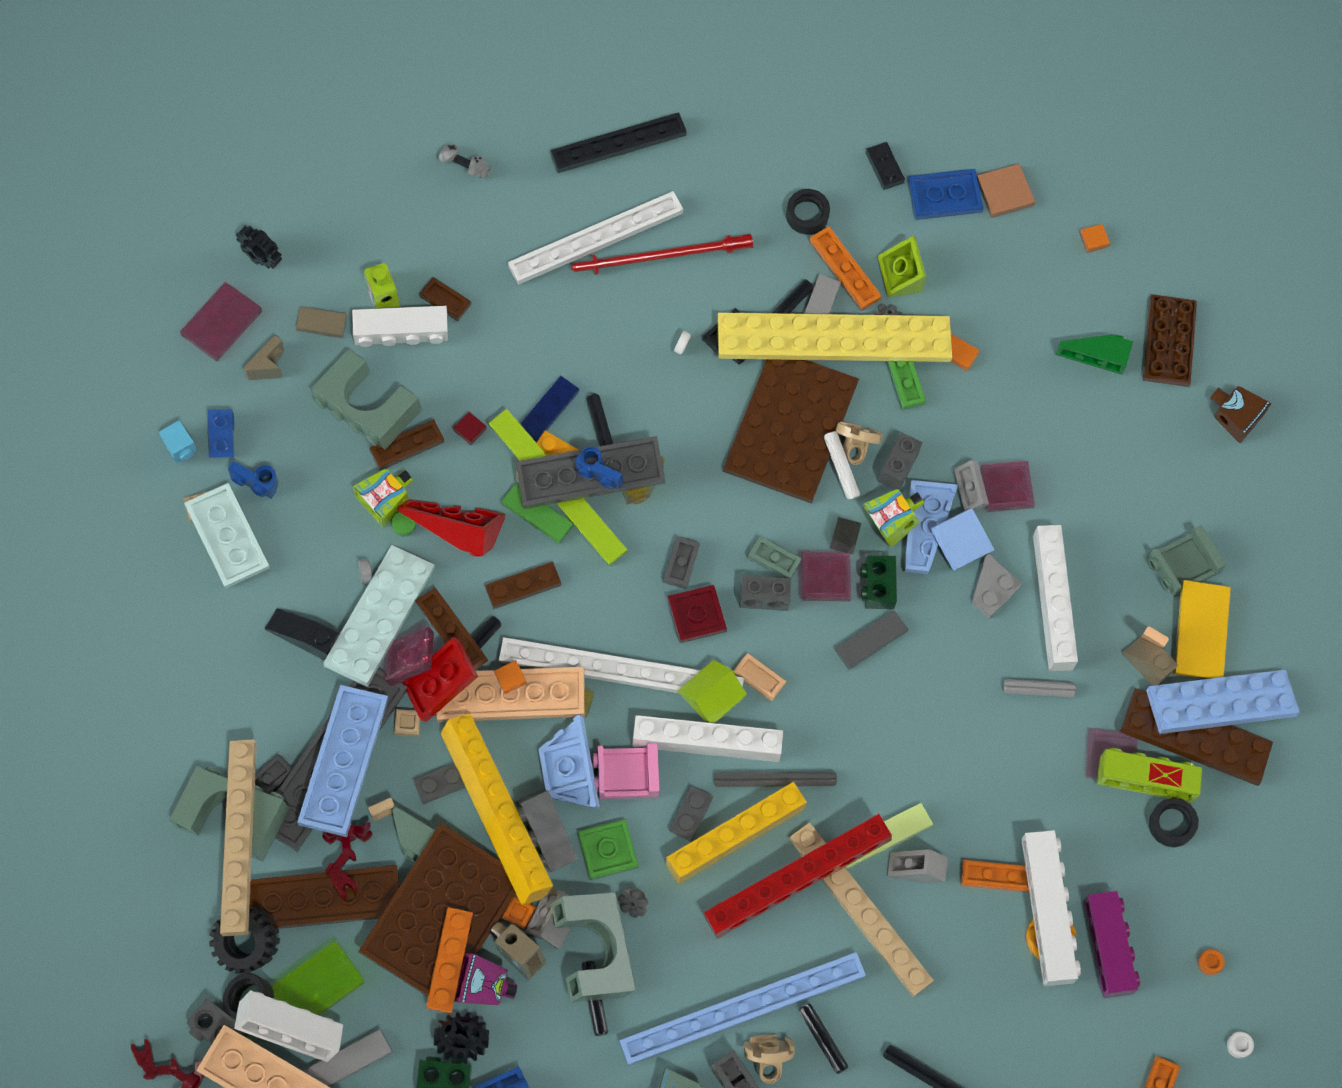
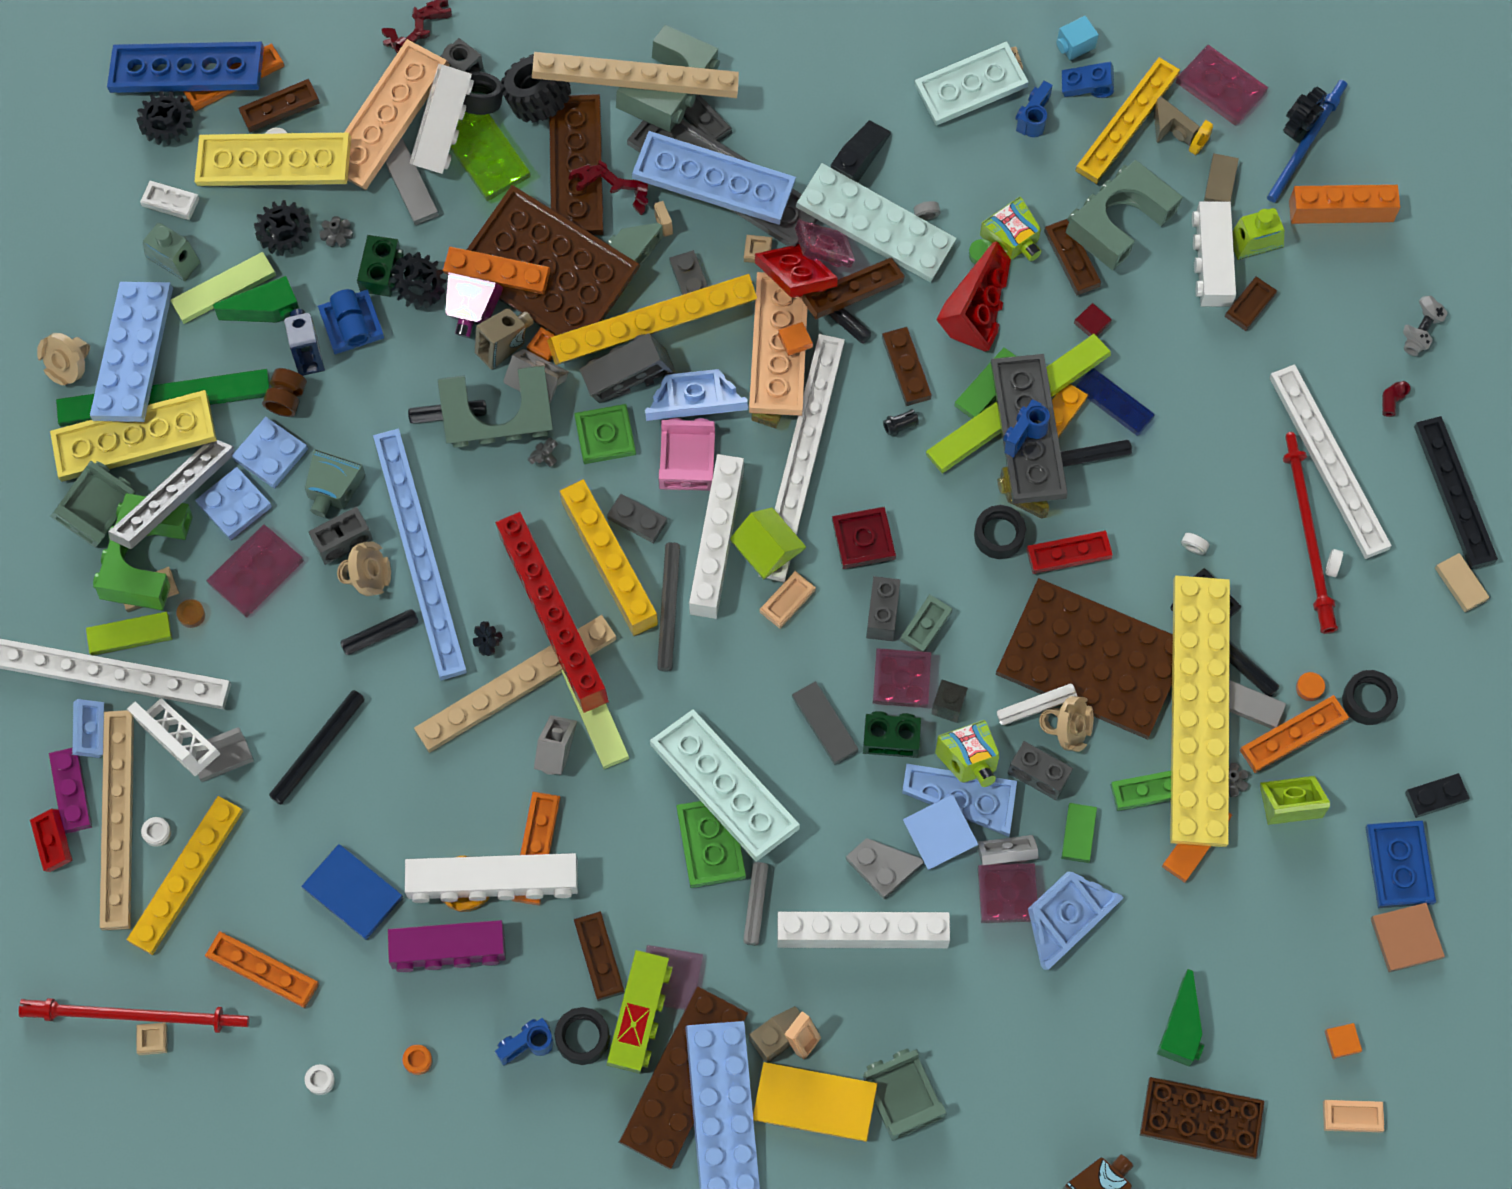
camera: 100 degrees right, 0 degrees up
(262, 399) = (1127, 120): none -> yellow plate
(275, 330) = (1201, 137): none -> yellow tile
(288, 255) = (1330, 104): none -> blue bar
(347, 220) = (1344, 204): none -> orange brick
(529, 188) = (1392, 395): none -> dark red arm
(584, 591) = (900, 422): none -> black pin
(681, 562) = (924, 525): dark grey plate -> none
(686, 483) = (1005, 513): none -> black tyre
(691, 235) = (1334, 563): none -> white tile
(697, 443) = (1069, 552): none -> red plate
(698, 141) = (1462, 582): none -> tan tile
(801, 256) = (1310, 686): none -> orange tile
(823, 936) = (487, 638): none -> black plant
(942, 716) = (724, 785): none -> light aqua plate
(947, 433) = (1079, 833): none -> bright green tile
(990, 727) = (708, 847): none -> bright green plate
(1023, 438) = (1067, 914): none -> light blue wing
(1071, 1035) = (352, 891): none -> blue tile
(1100, 816) = (599, 956): none -> reddish brown tile
(1152, 232) = (1353, 1116): none -> light nougat tile
(1192, 879) = (512, 1047): none -> blue plate

